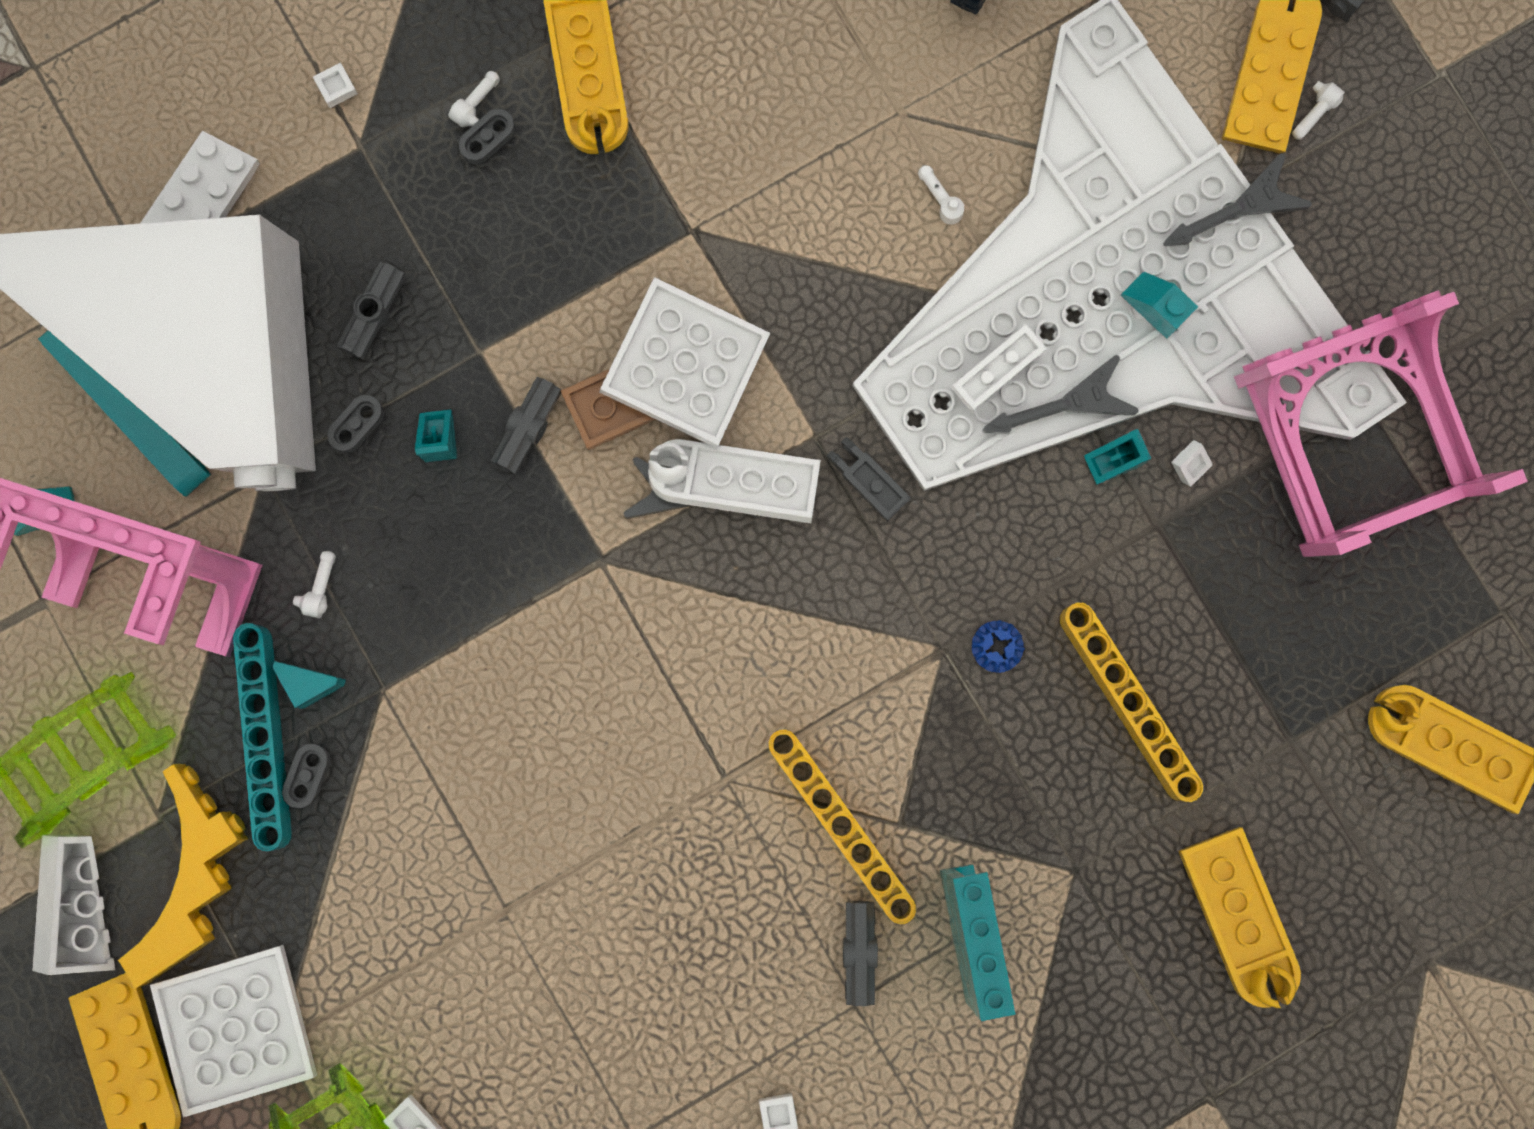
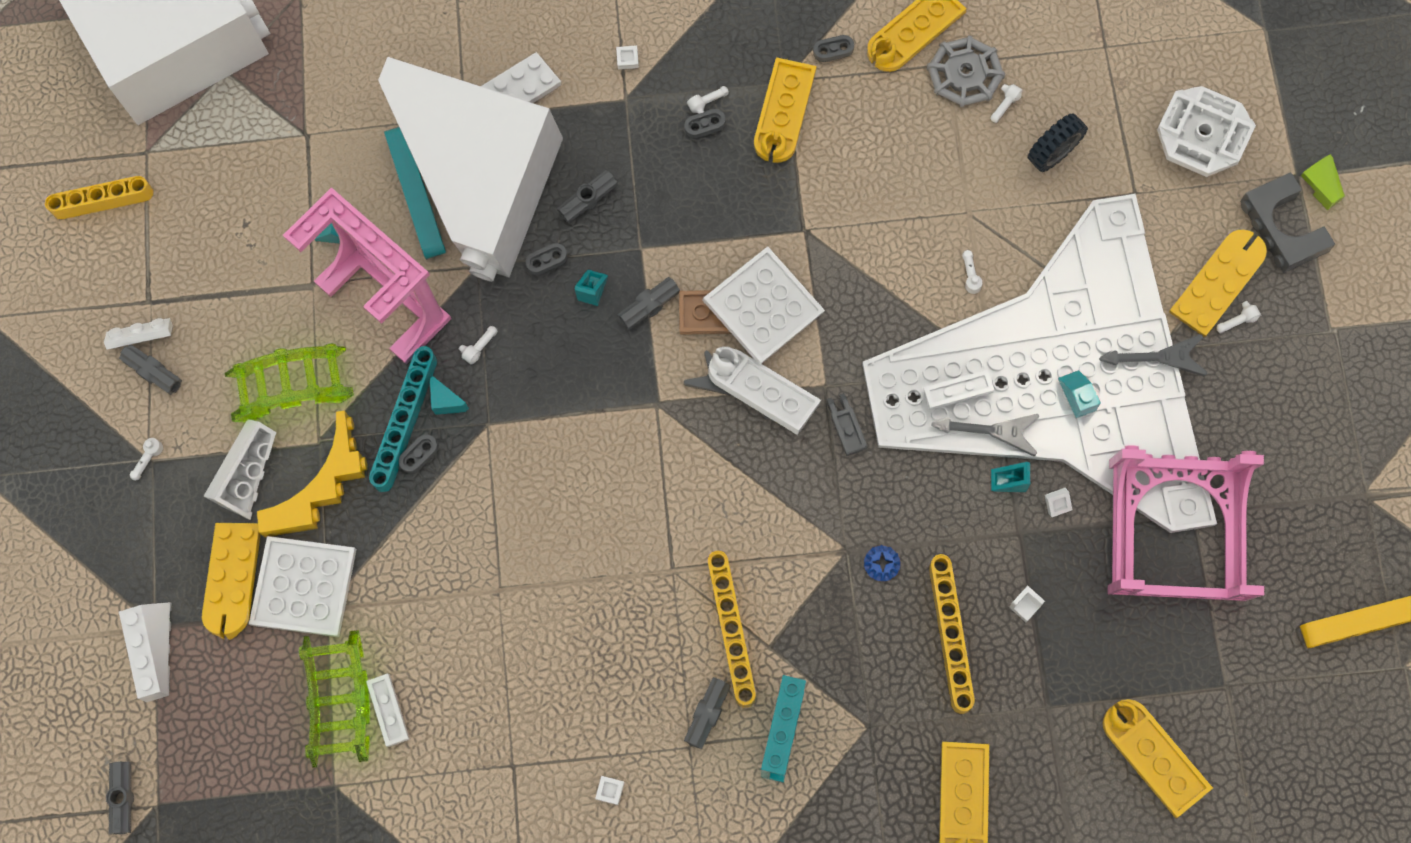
camera: 30 degrees right, 10 degrees down
(1208, 618) = (1026, 604): none -> white panel

